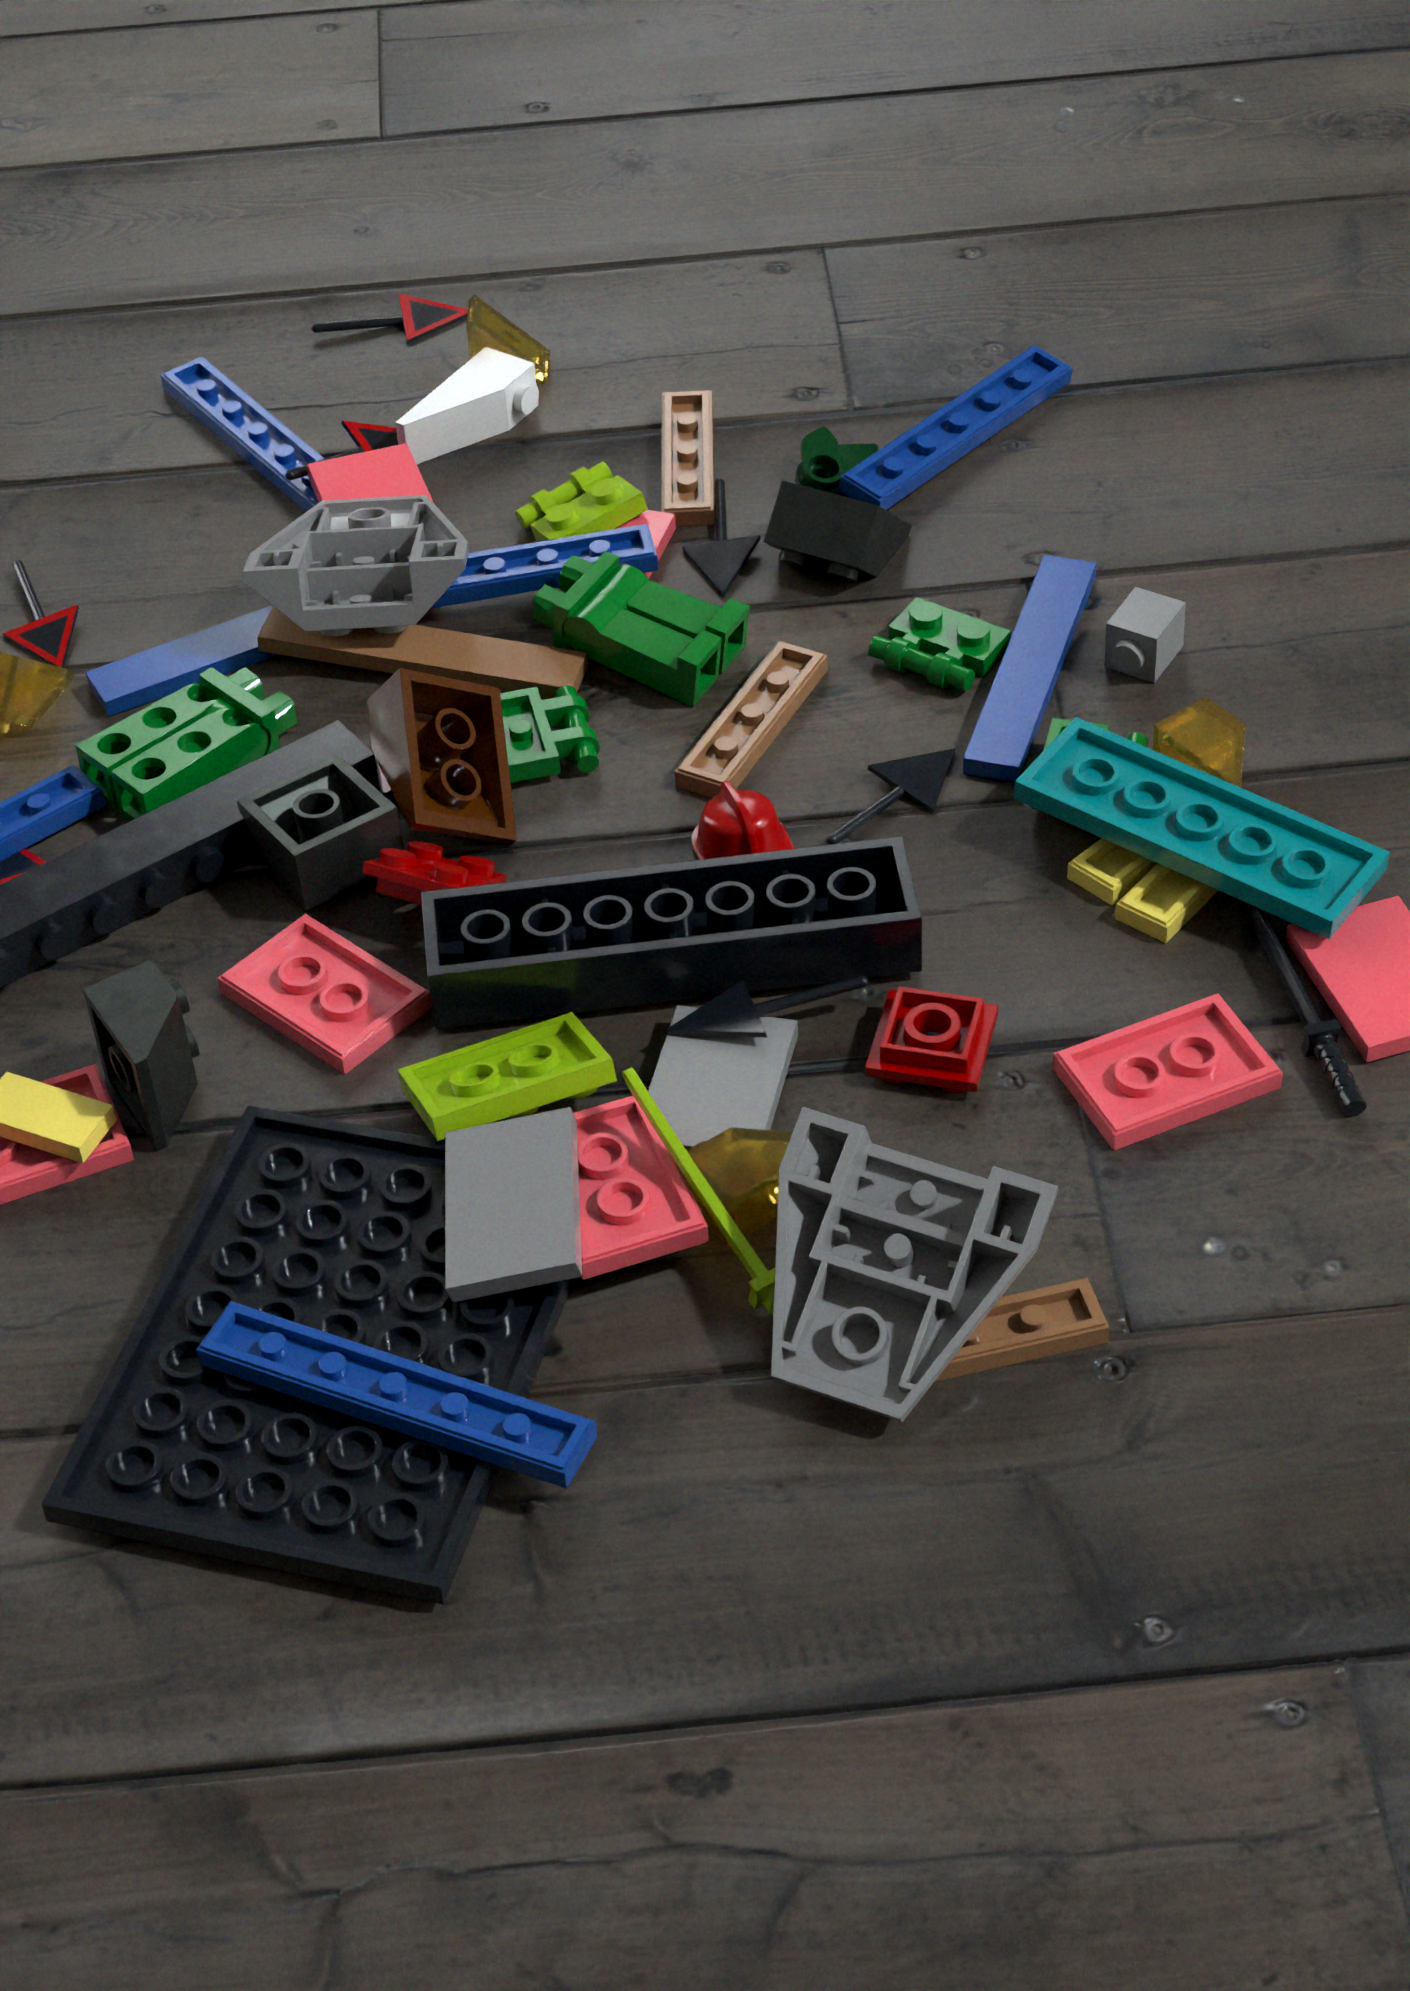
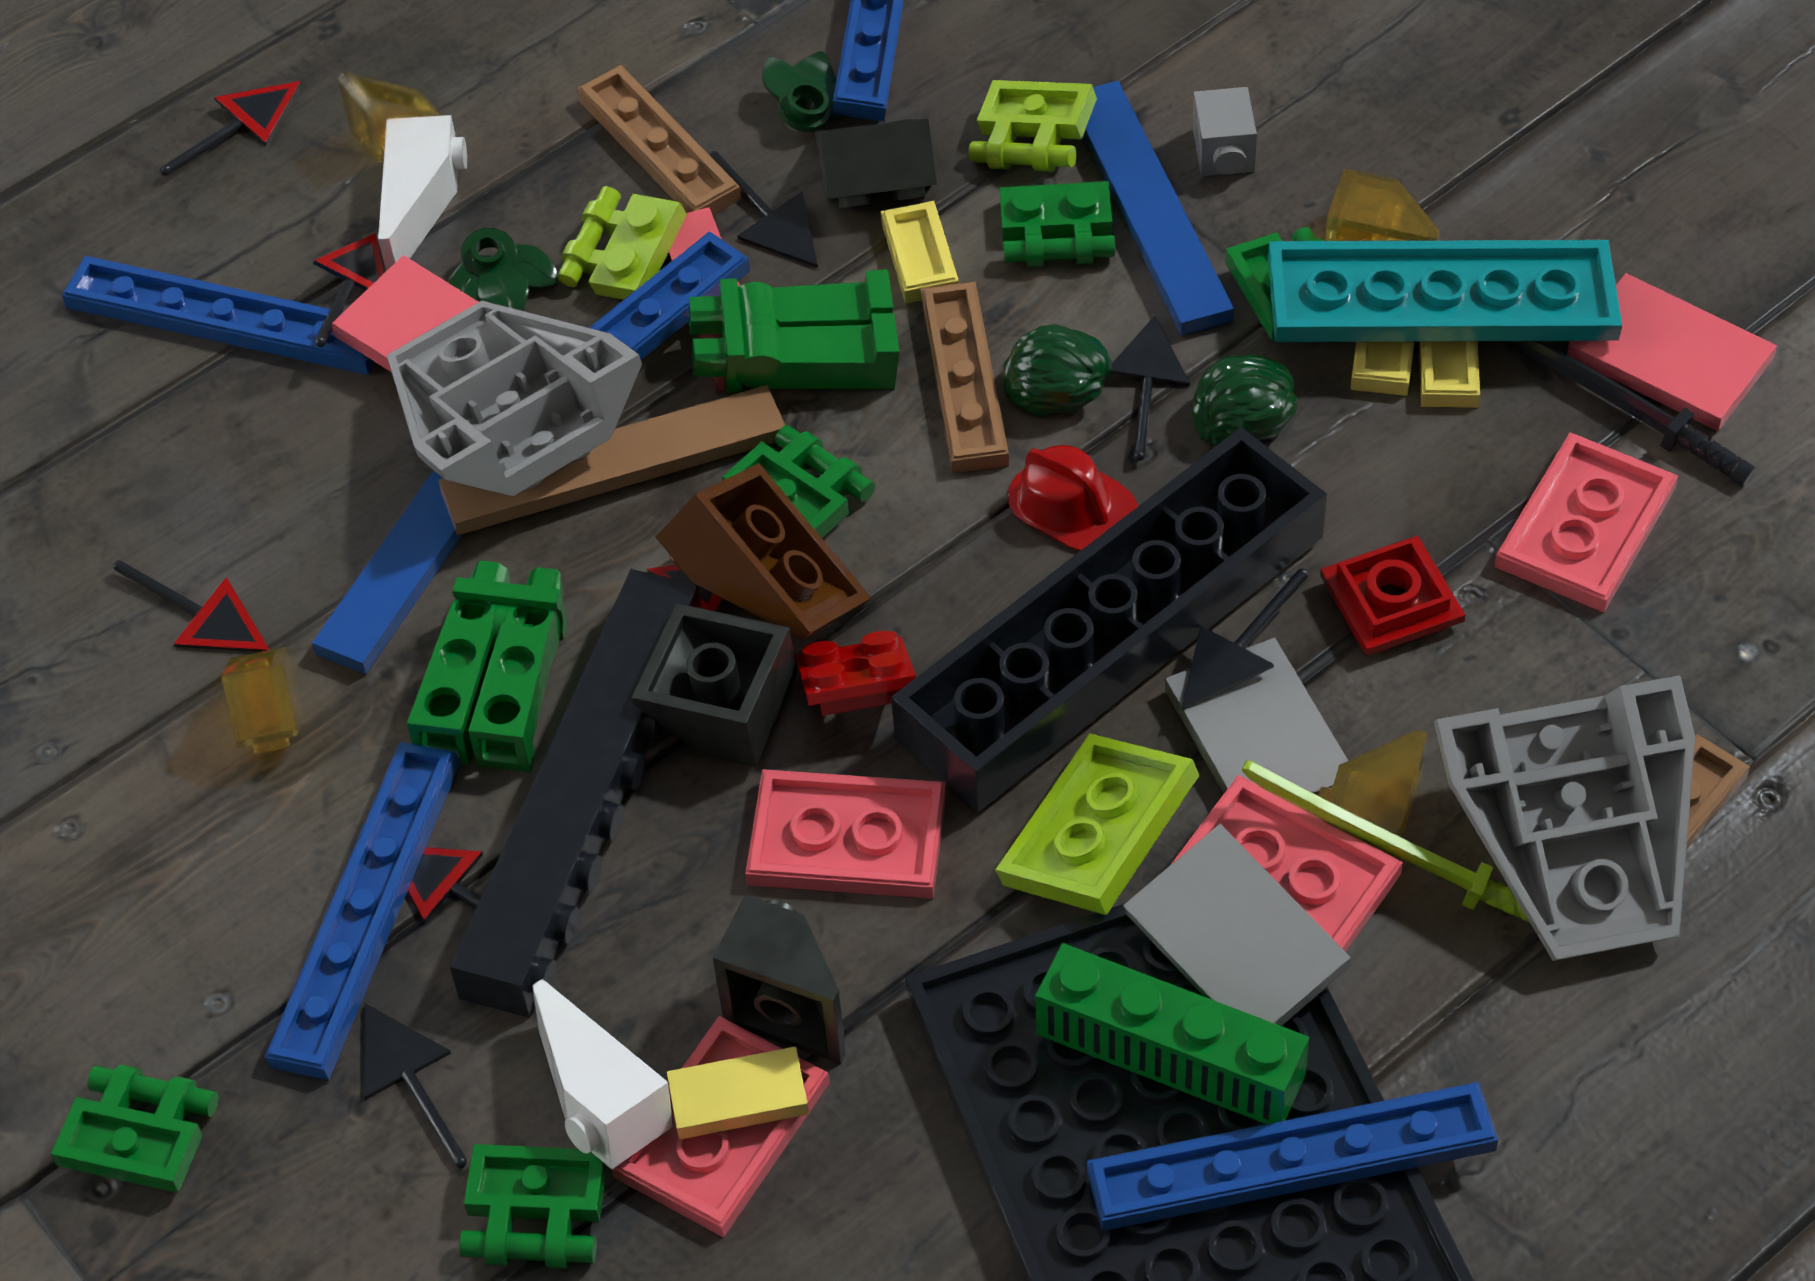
camera: 35 degrees left, 10 degrees up
(382, 1245) = (1171, 1035): none -> green brick
(473, 489) = (504, 276): none -> dark green plate
(812, 613) = (918, 249): none -> light yellow tile
(822, 743) = (1055, 370): none -> dark green hair
(954, 835) = (1245, 394): none -> dark green hair
(984, 557) = (1032, 110): none -> lime plate

